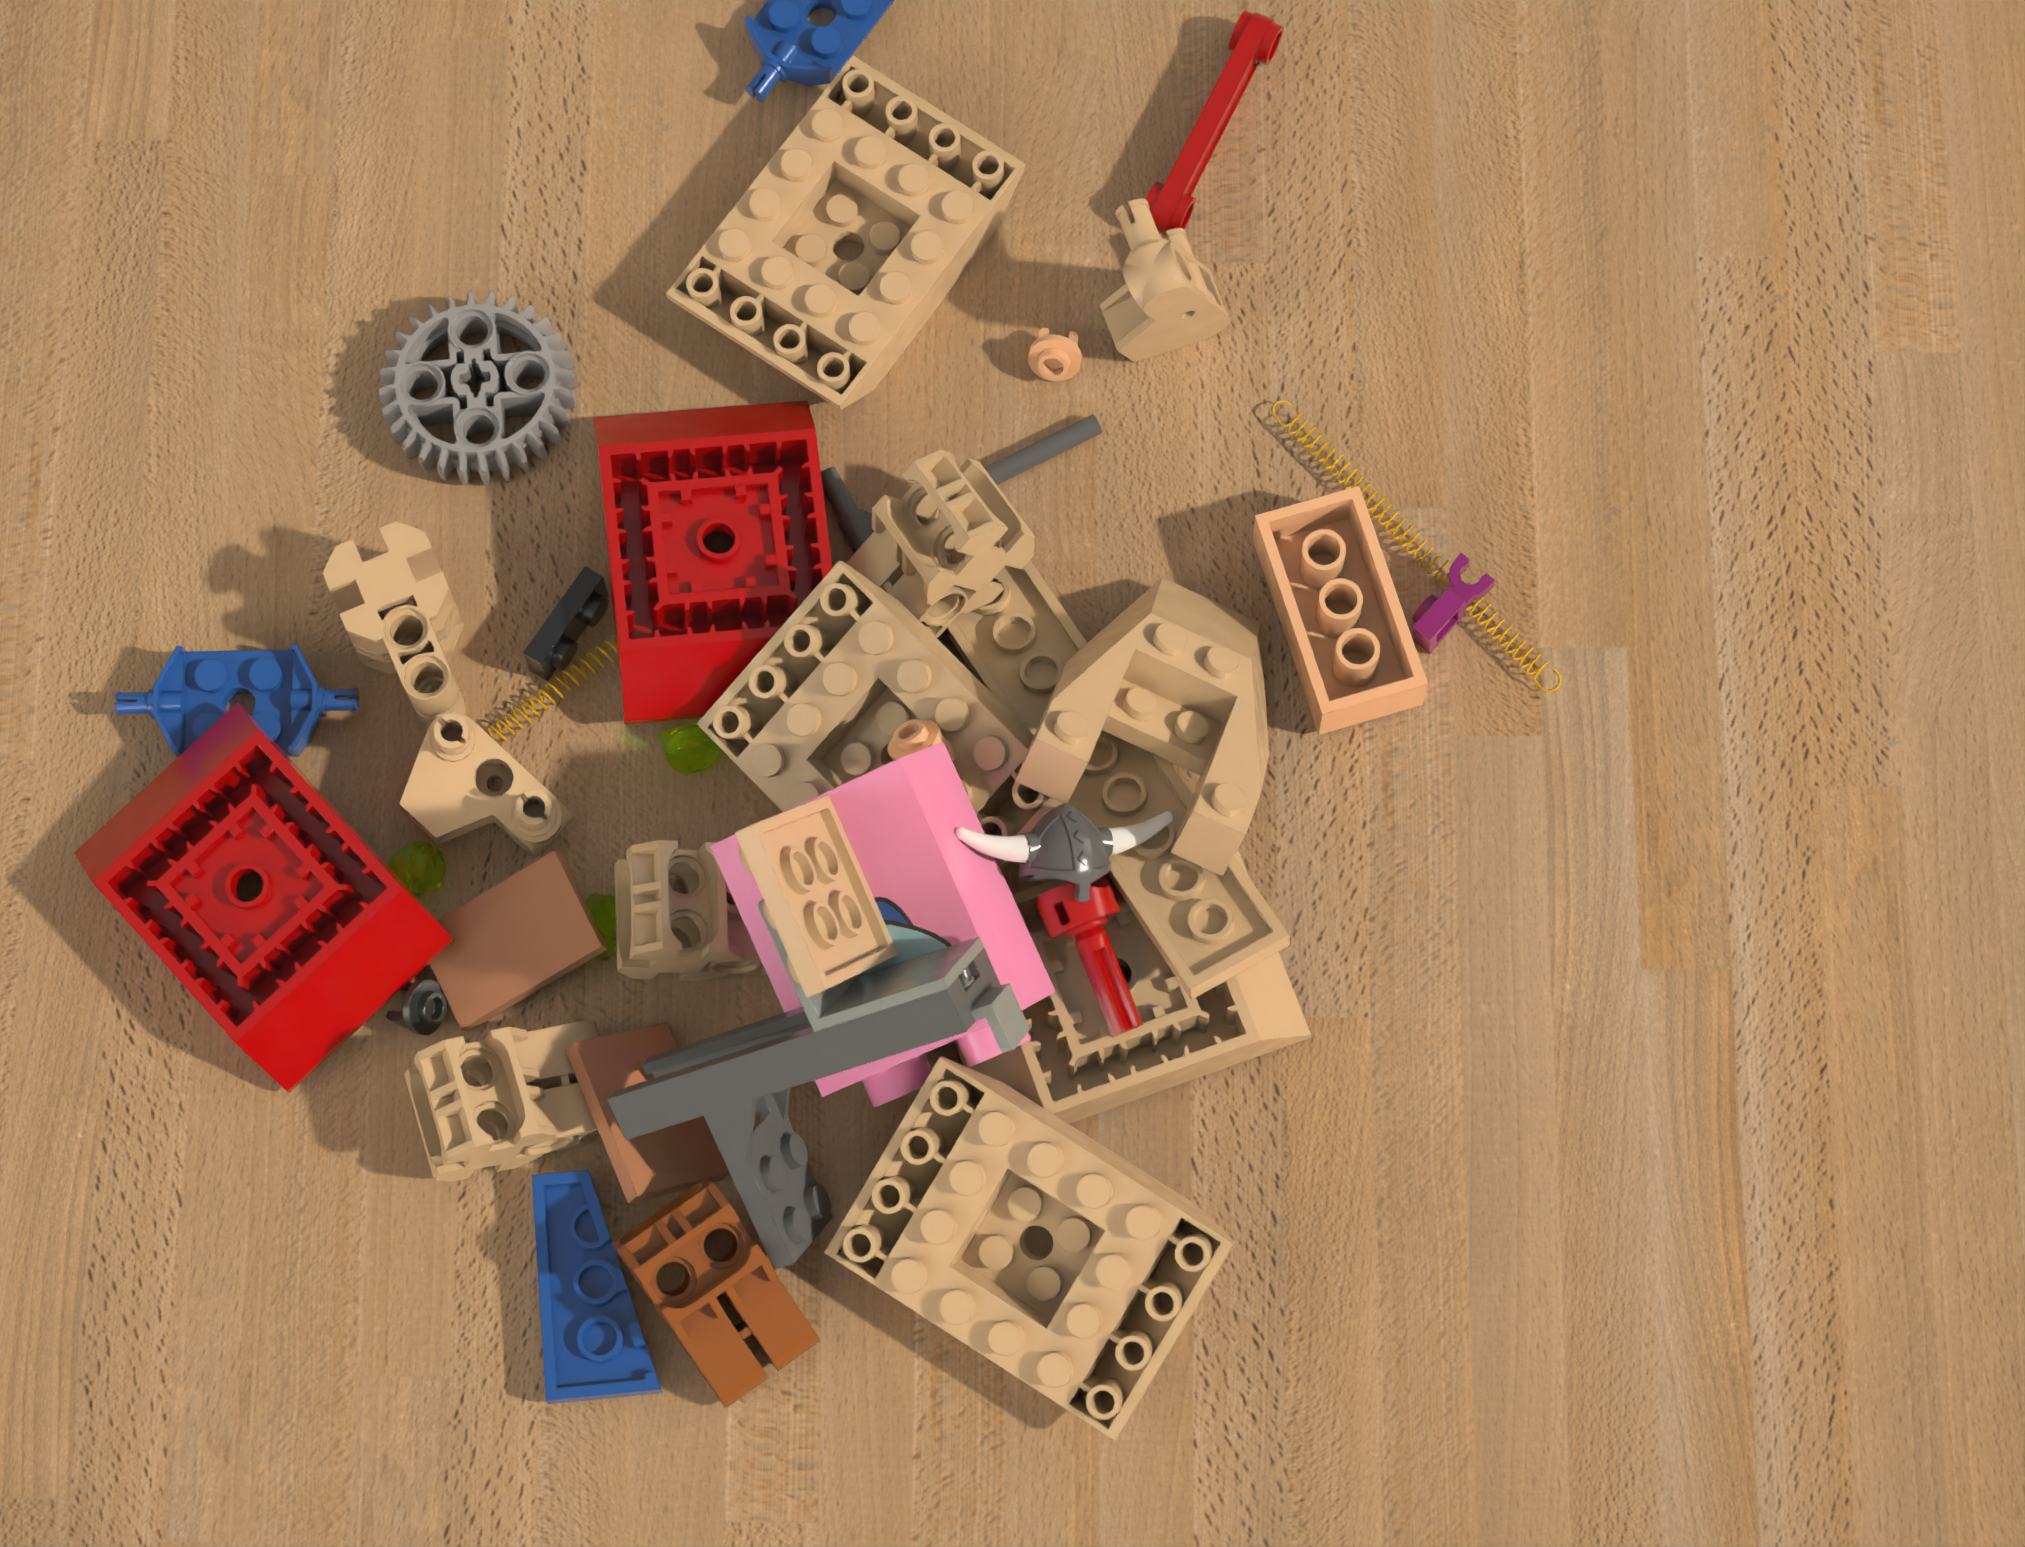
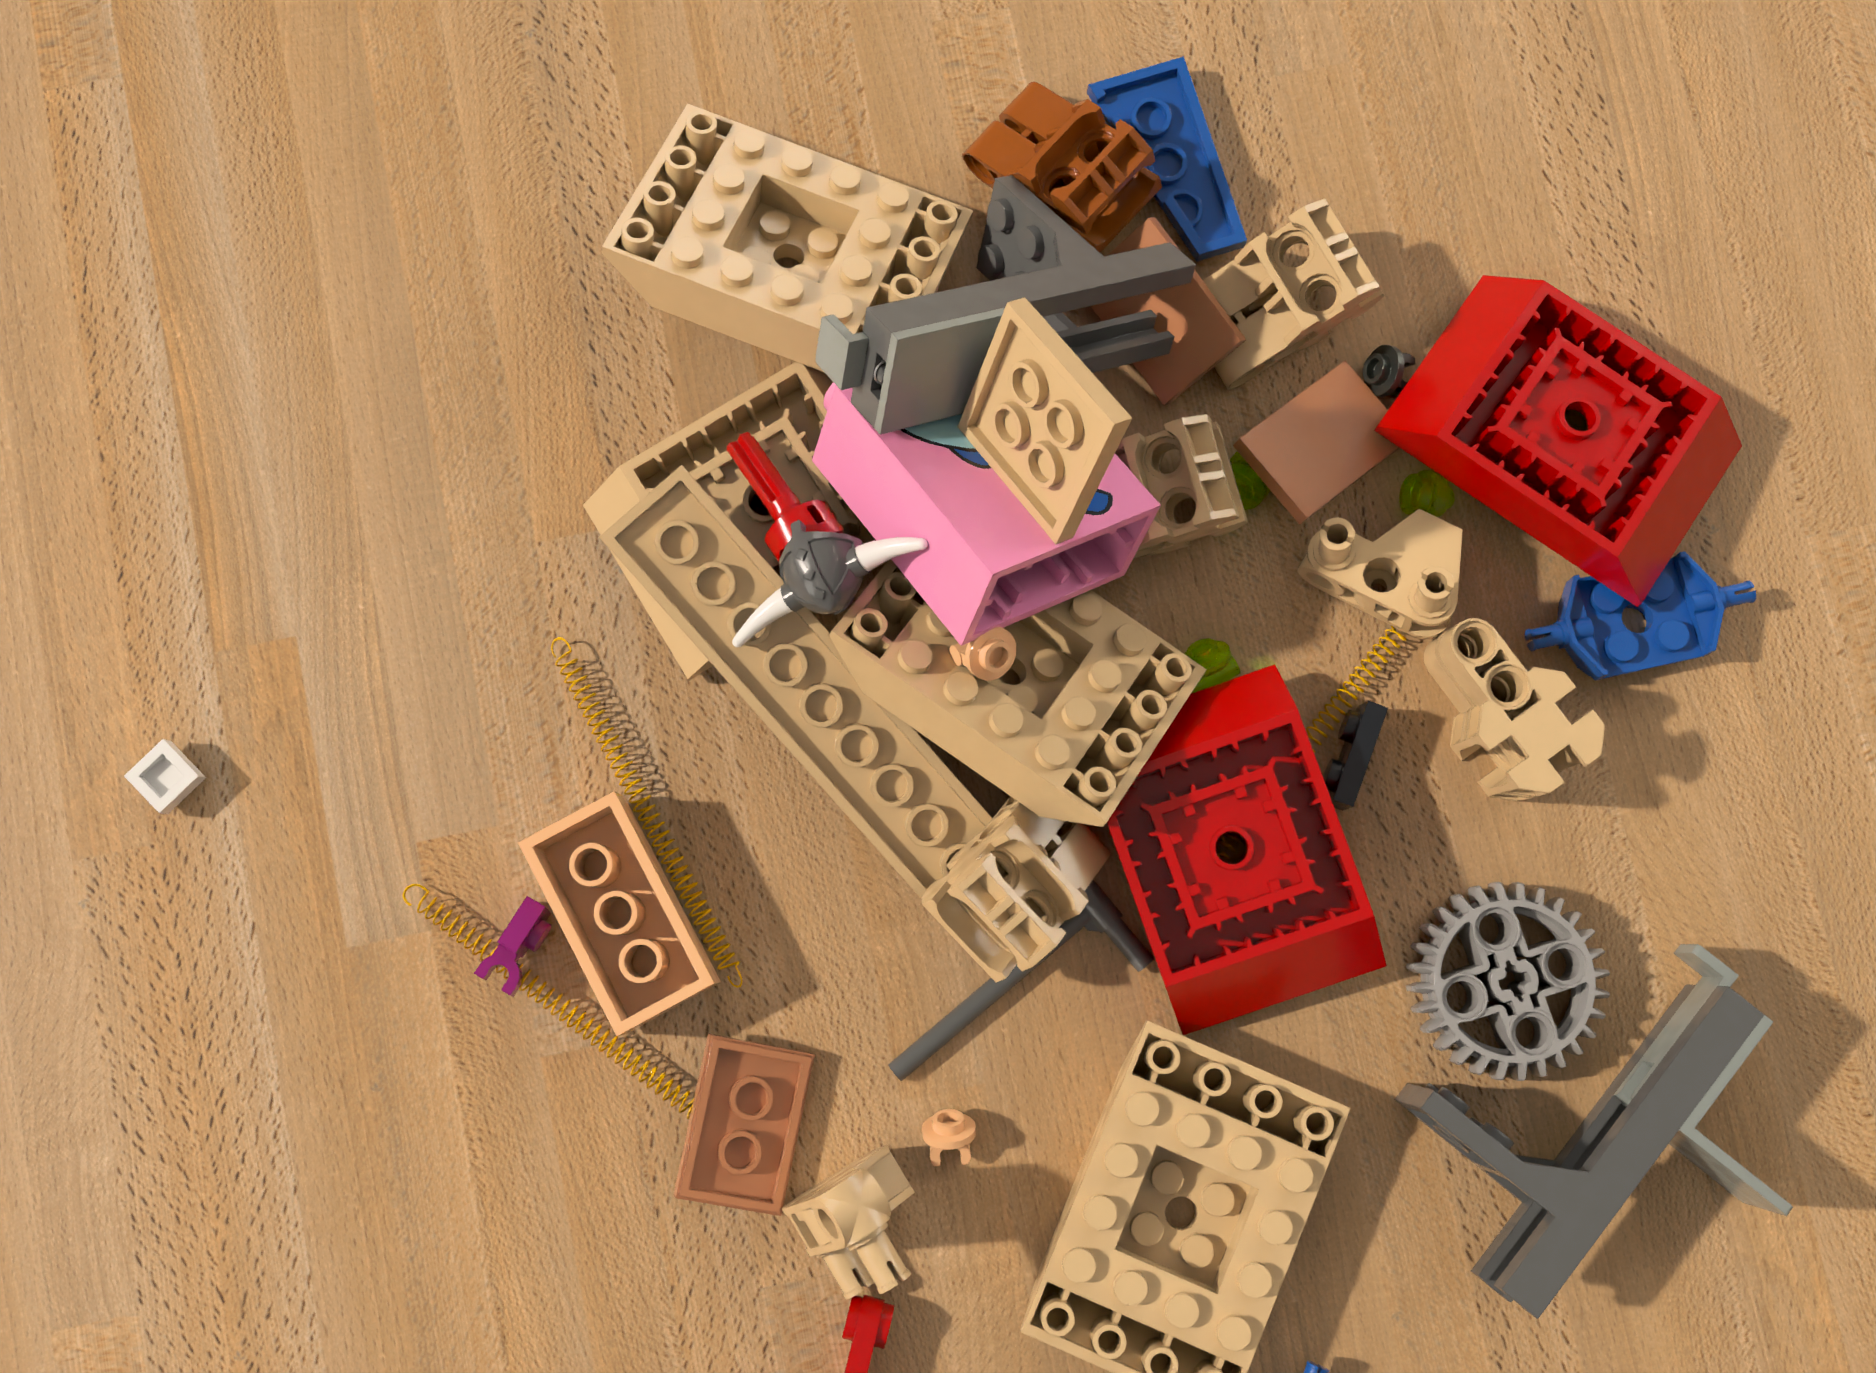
camera: 165 degrees right, 10 degrees up
(473, 186) = (1644, 1109): none -> dark grey piece
(1181, 685) = (756, 783): tan wedge -> none
(1252, 402) = (744, 1125): none -> nougat tile
(1302, 710) = (686, 877): none -> yellow piece
(1791, 841) = (165, 776): none -> white plate

